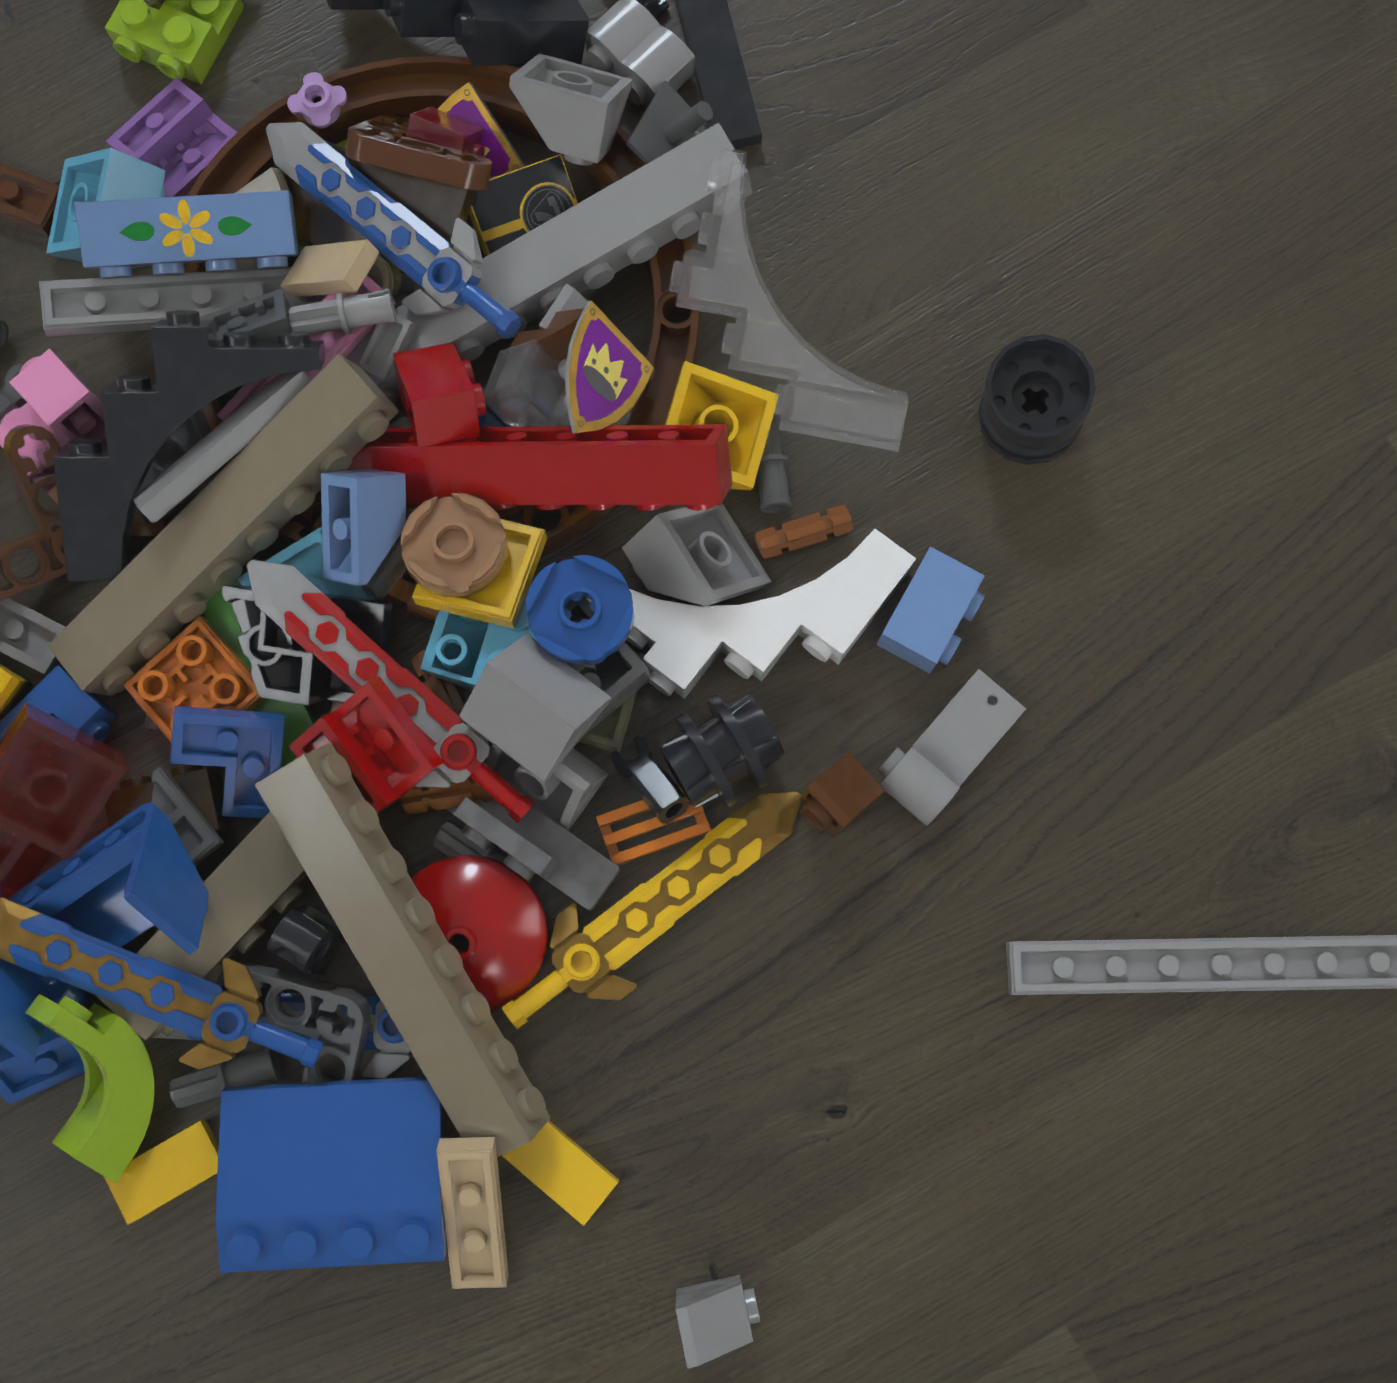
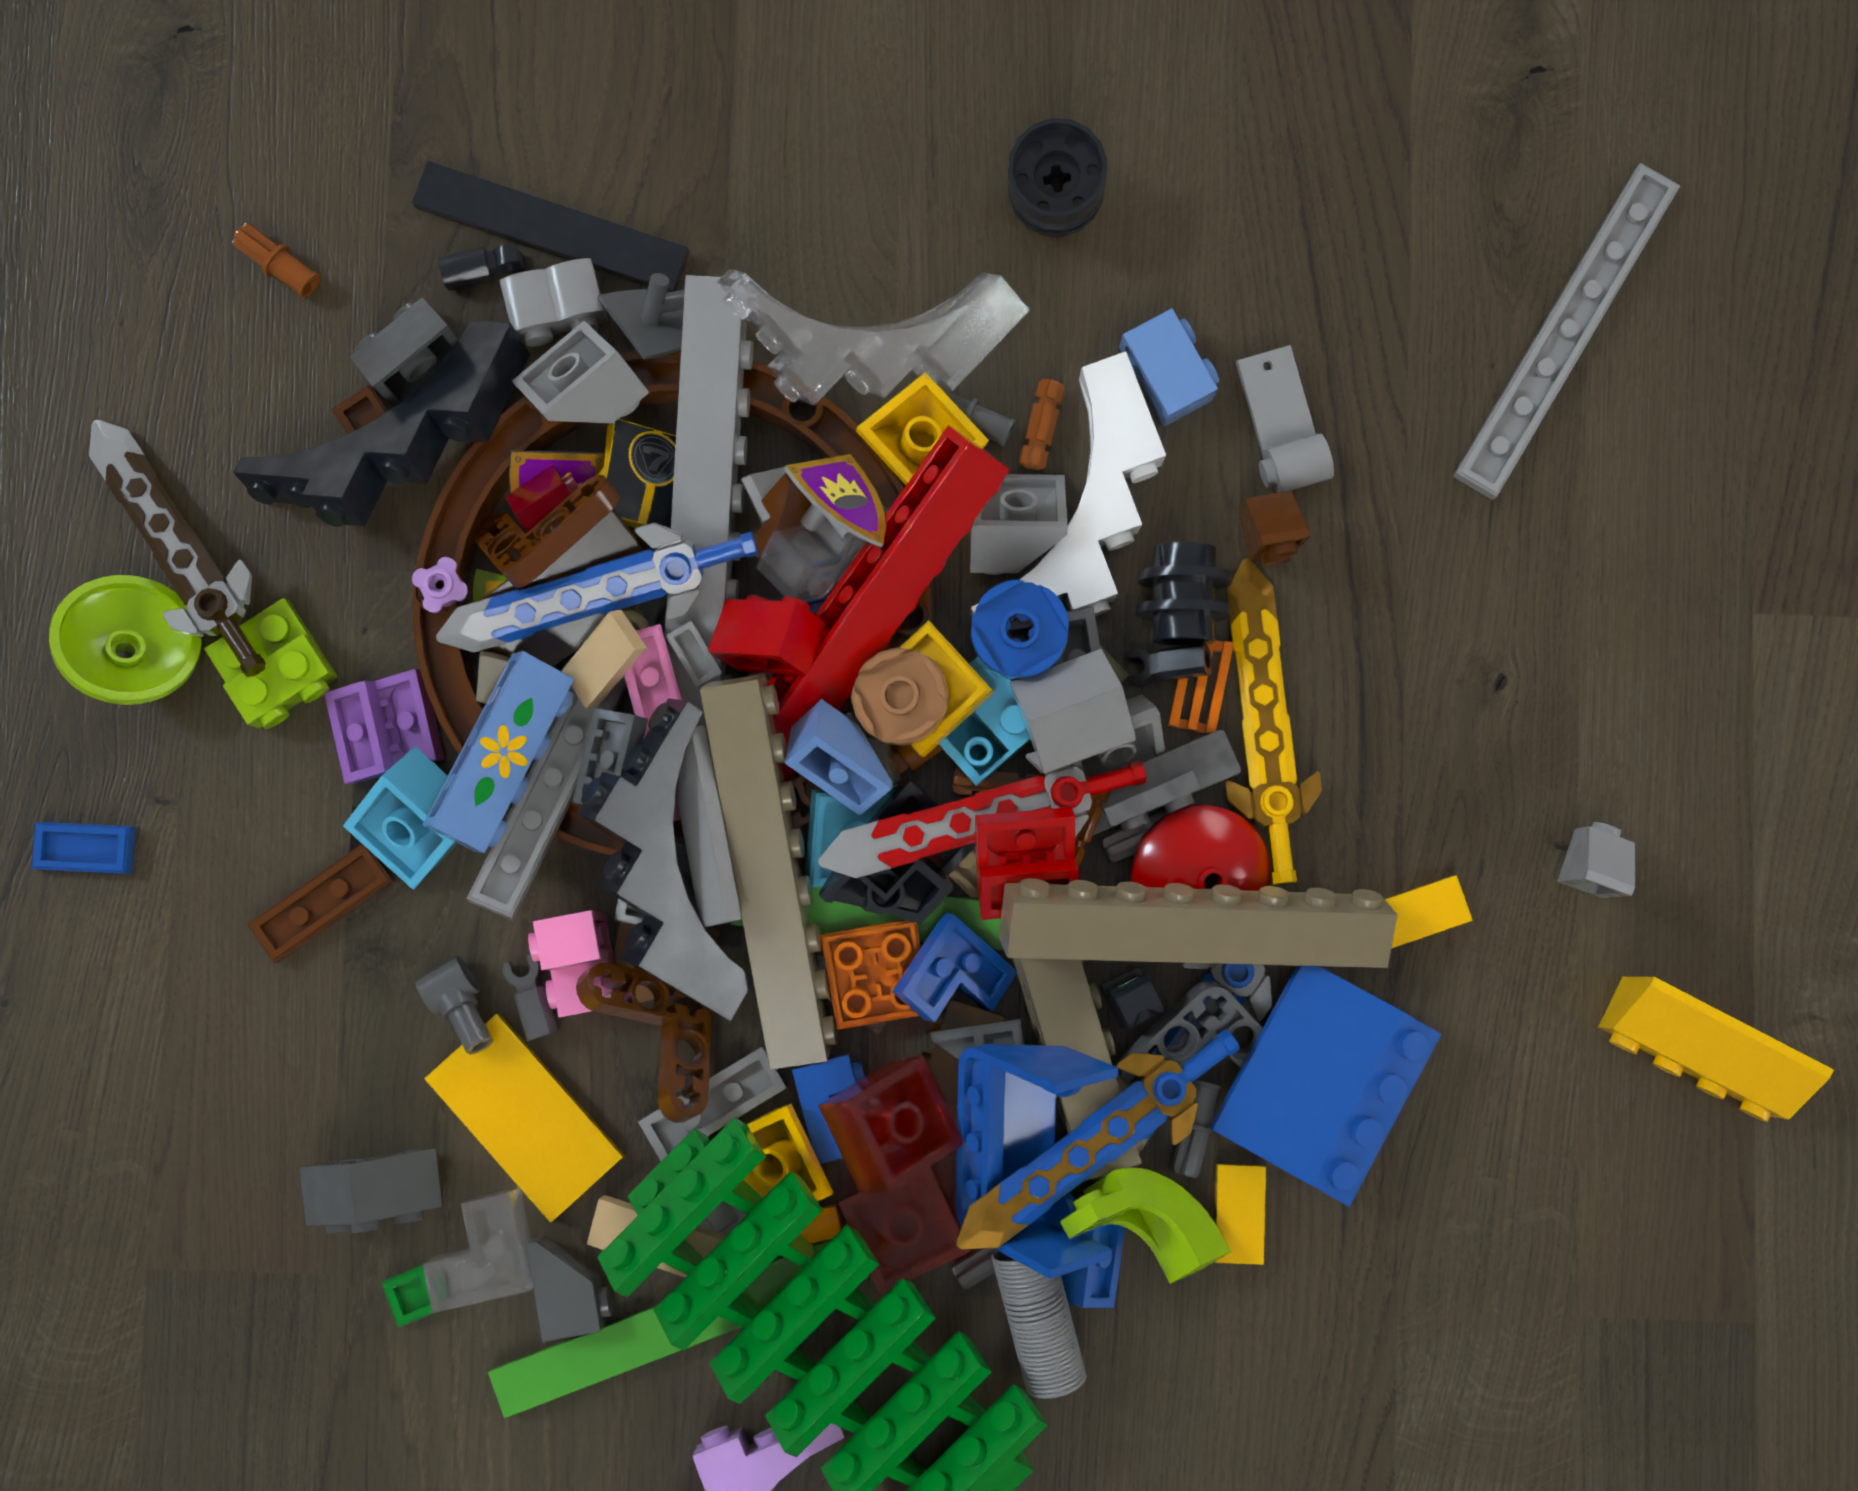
camera: 55 degrees left, 5 degrees up
(344, 313) = (655, 668): light grey axle -> none
(473, 1212) = (1417, 992): tan tile -> none

